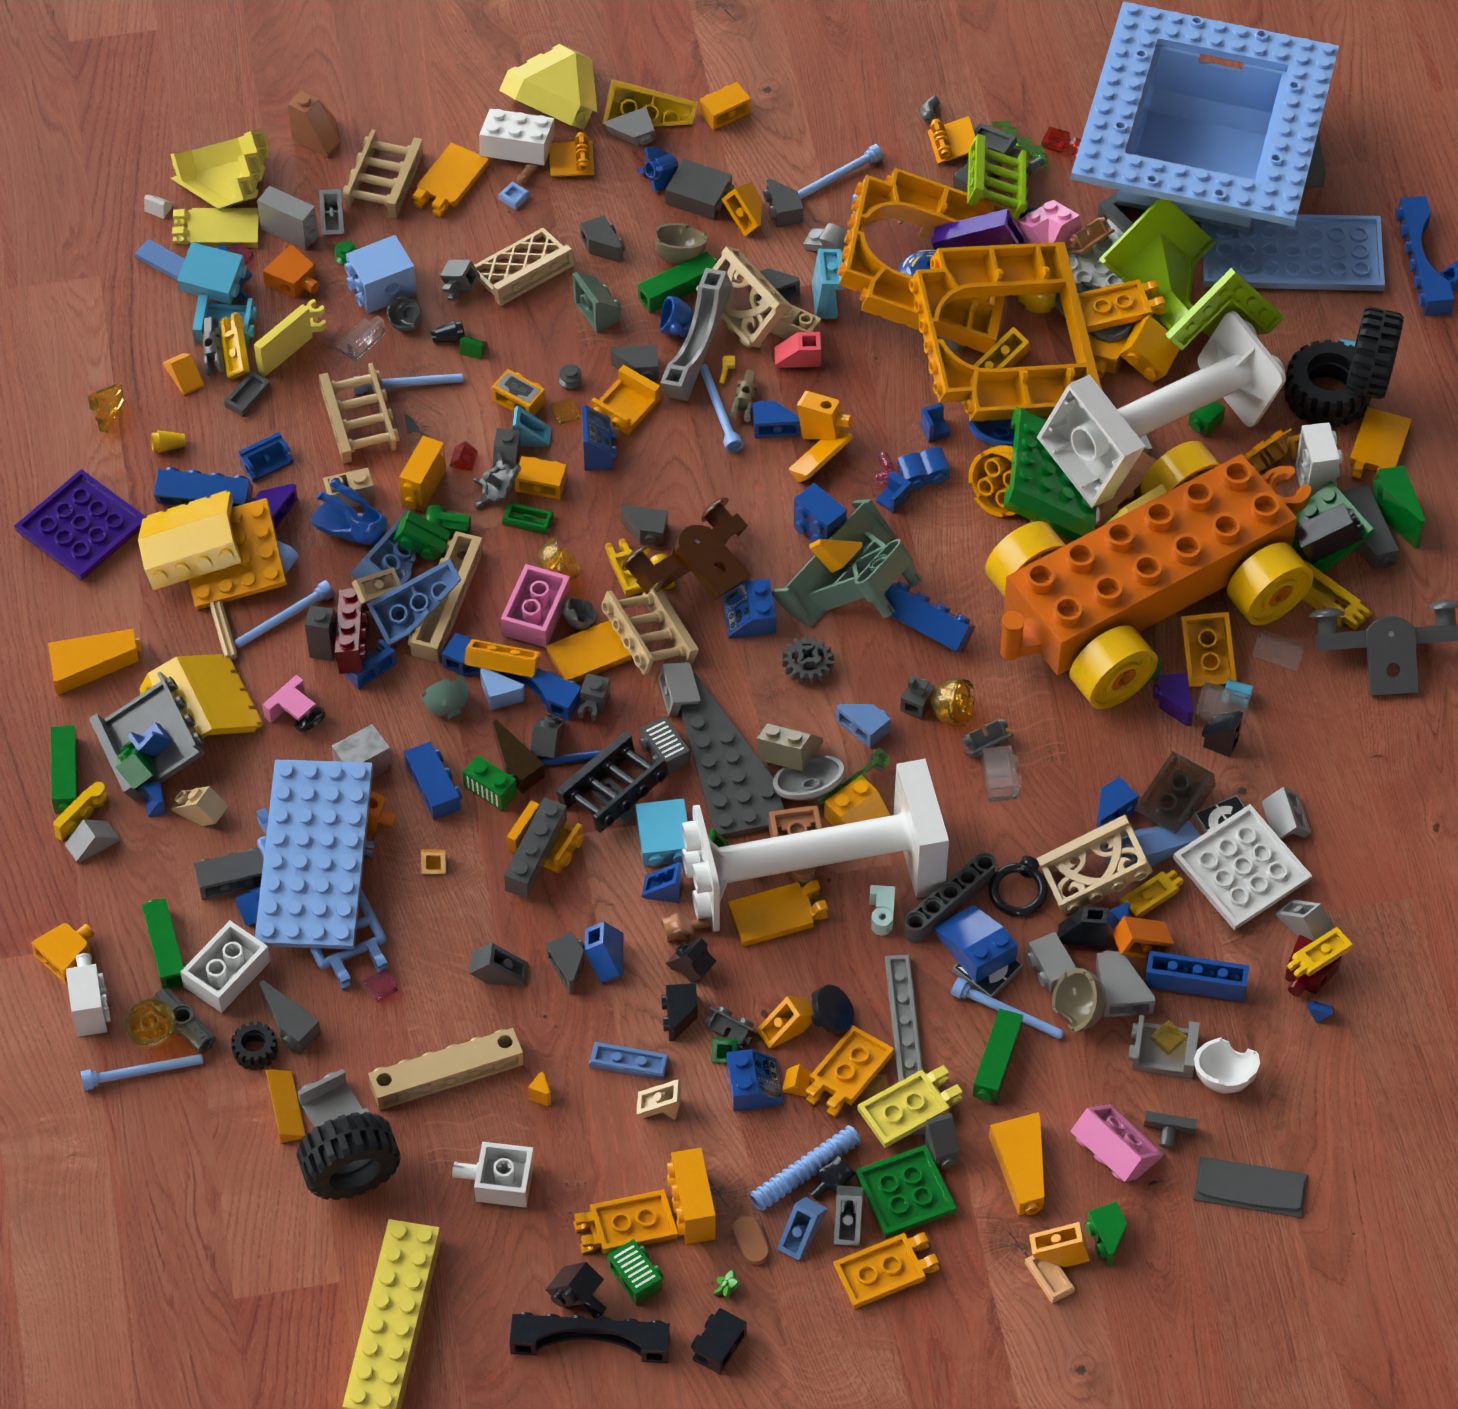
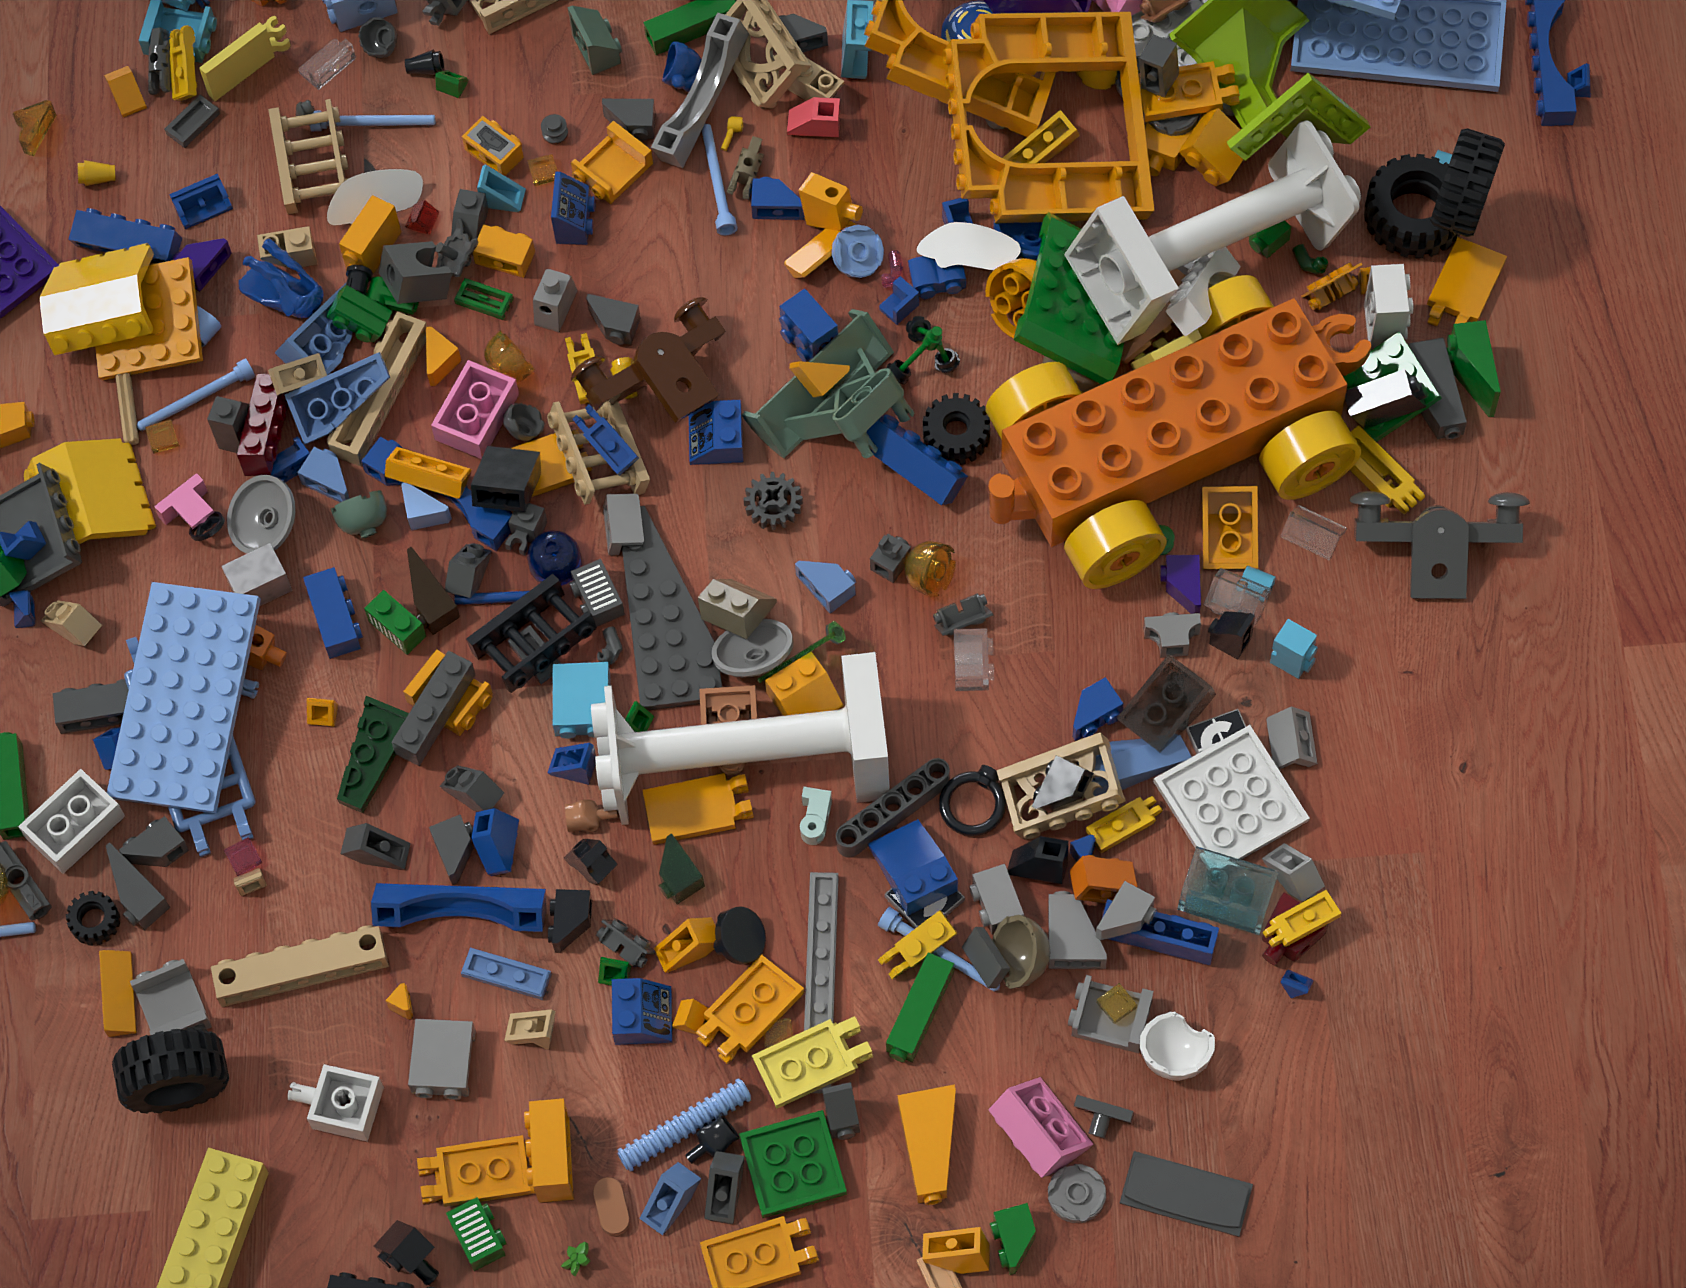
camera: 10 degrees right, 10 degrees up
(258, 650) = (162, 436): none -> clear yellow tile
(303, 981) = (155, 846): none -> dark grey slope
(348, 373) = (304, 108): none -> dark grey arm
(352, 697) = (261, 513): none -> light grey dish
(390, 1005) = (249, 881): none -> tan slope
(406, 437) = (394, 186): none -> white sticker
(409, 669) = (323, 474): none -> medium blue slope
(417, 504) = (358, 277): none -> black bush
(464, 501) = (410, 273): none -> dark grey piece
(483, 891) = (370, 753): none -> dark green wing
(498, 565) = (441, 356): none -> light orange slope
(573, 656) = (506, 479): none -> black brick
(577, 911) = (472, 788): none -> dark grey slope
(583, 1132) = (441, 1058): none -> light grey panel
(592, 504) = (554, 292): none -> light grey torso
(621, 716) = (554, 554): none -> clear blue cylinder
(624, 1004) = (407, 903): none -> blue arch
(658, 619) = (607, 442): none -> blue hinge
(684, 787) = (613, 647): none -> dark grey arm
(771, 965) = (678, 873): none -> clear green slope
(852, 454) = (857, 251): none -> light blue tile
(917, 515) = (920, 330): none -> black plant
(949, 441) = (969, 245): none -> white sticker
(960, 574) = (957, 446): none -> black tyre
(986, 1005) = (920, 941): none -> yellow hinge
(1049, 1009) = (985, 957): none -> dark grey tile
(1095, 283) = (1159, 65): none -> dark grey brick
(1098, 860) = (1062, 785): none -> slope
(1153, 462) = (1191, 303): none -> white arch
(1158, 1201) = (1080, 1201): none -> light grey tile
(1169, 957) = (1127, 912): none -> light grey slope
(1170, 737) = (1172, 632): none -> light grey brick
(1240, 437) = (1306, 263): none -> dark green arm
(1251, 938) = (1227, 890): none -> clear light blue slope
(1279, 741) = (1294, 649): none -> medium azure brick

